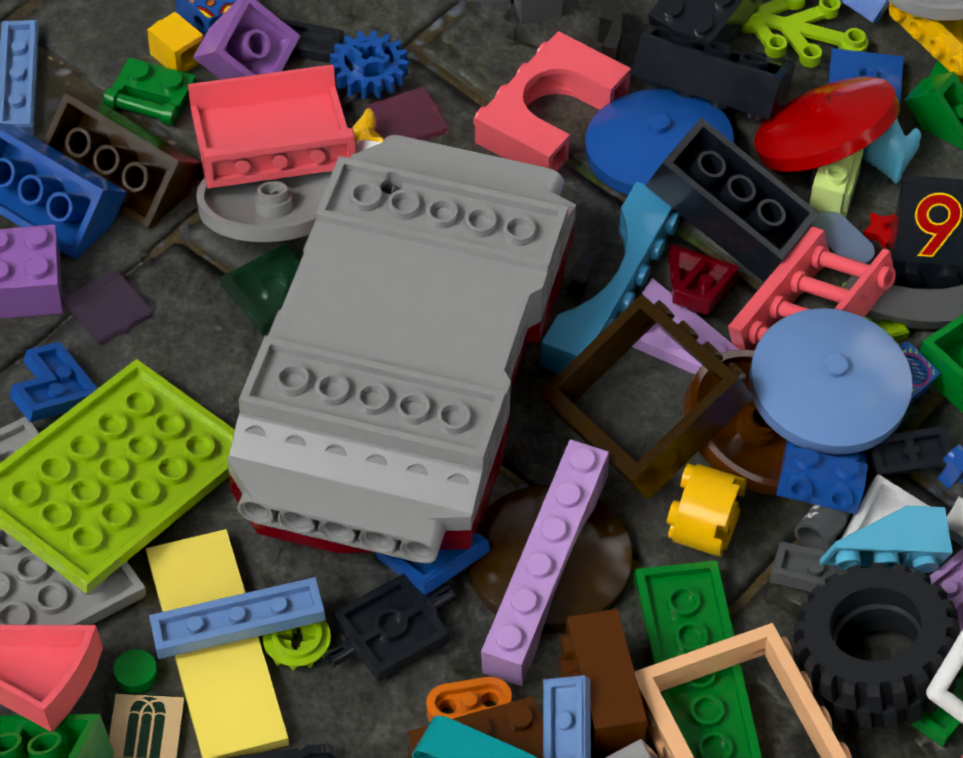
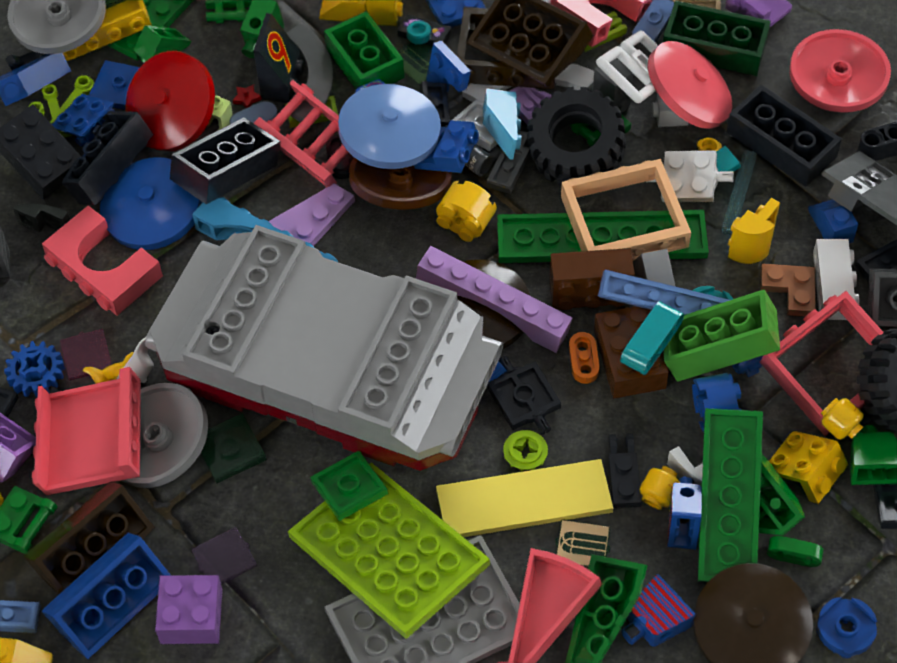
camera: 80 degrees left, 5 degrees up
(57, 384) = (300, 582): blue plate -> none
(135, 671) = (540, 542): green tile -> none
(199, 413) = (349, 485): none -> green plate
(237, 618) = (516, 477): medium blue plate -> none
(688, 434) = (370, 179): dark brown window -> none
(698, 279) = (275, 195): dark red wing -> none
(781, 38) = (83, 117): none -> blue hinge

